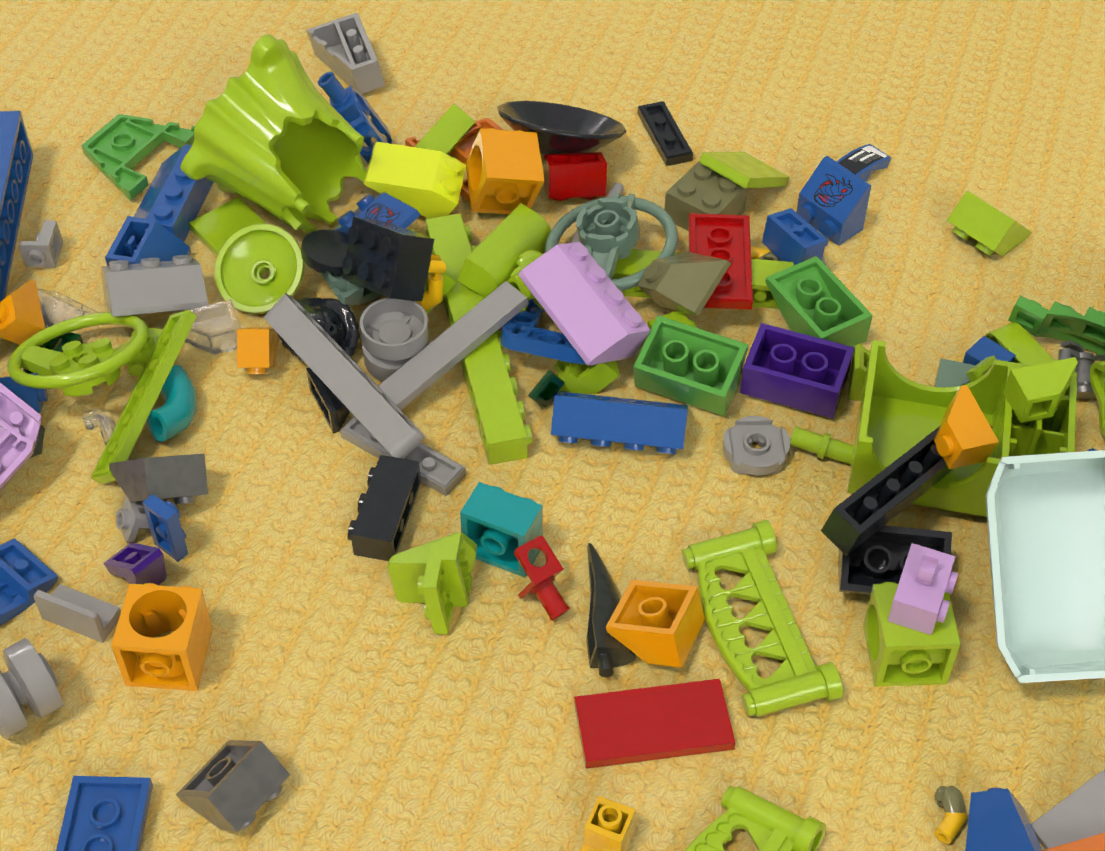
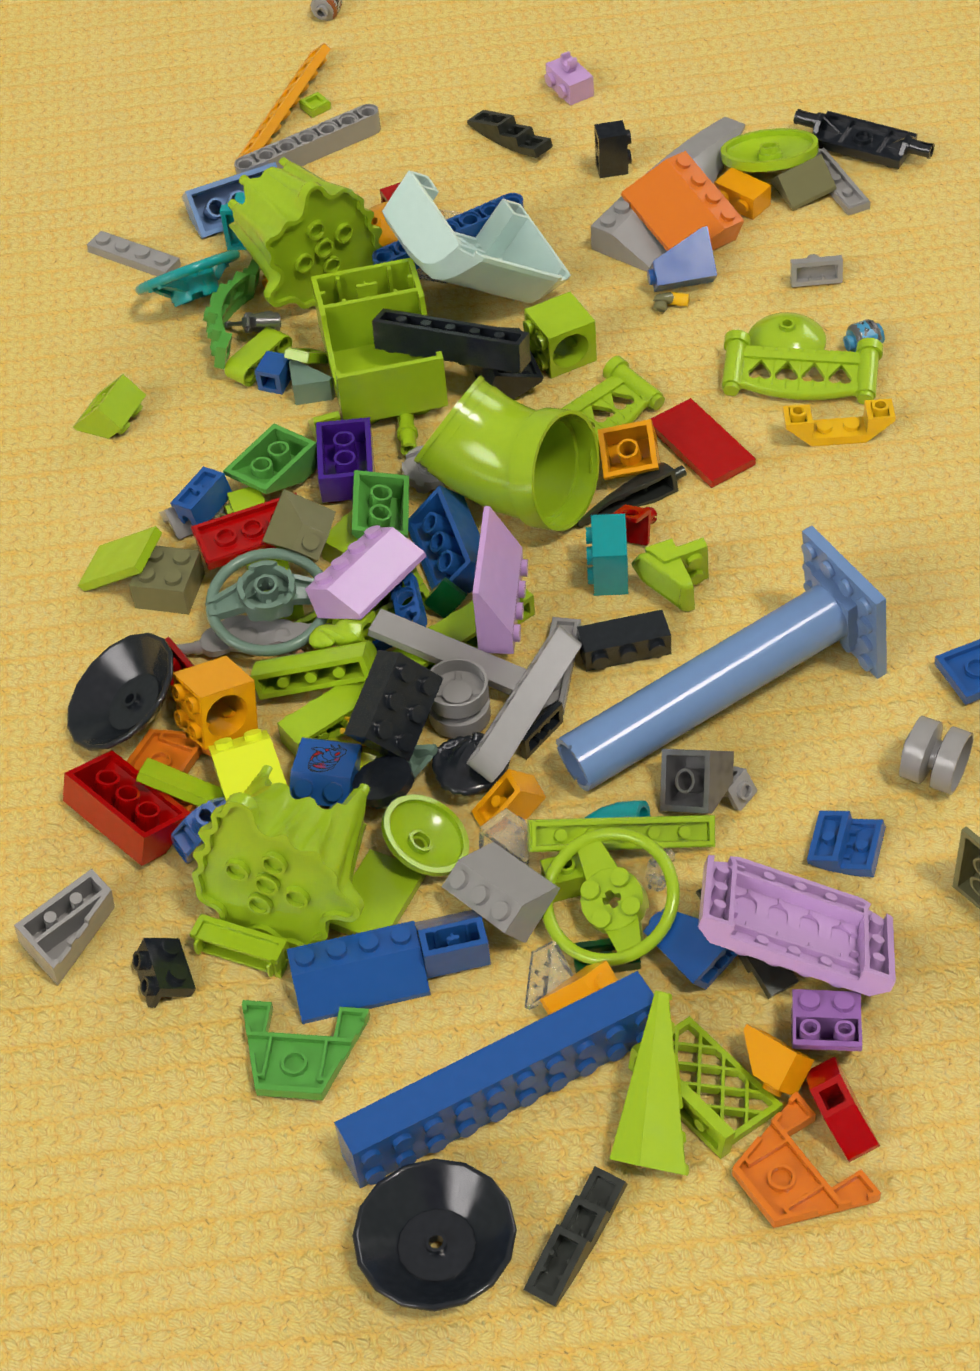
camera: 110 degrees left, 0 degrees up
(46, 248) = (476, 1035): light grey bracket -> none
(78, 612) = (840, 778): light grey panel -> none
(138, 564) = (780, 754): dark purple slope -> none
(166, 527) = (740, 738): blue plate -> none
(169, 660) = (833, 695): light orange brick -> none
(235, 784) = (909, 615): flat silver slope -> none
(251, 660) = (833, 608): none -> medium blue piece
(417, 108) = (121, 808): none -> red slope
(487, 379) = (498, 586): none -> lavender slope
(665, 133) = (71, 650): black tile -> none
(674, 473) = (516, 457): none -> lime cylinder
(834, 201) = (135, 494): blue slope -> none
(864, 160) = (65, 505): slope -> none
(921, 589) = (546, 306): lavender brick -> none
(964, 432) = (407, 306): light orange slope -> none
(1039, 388) = (348, 277): lime slope -> none

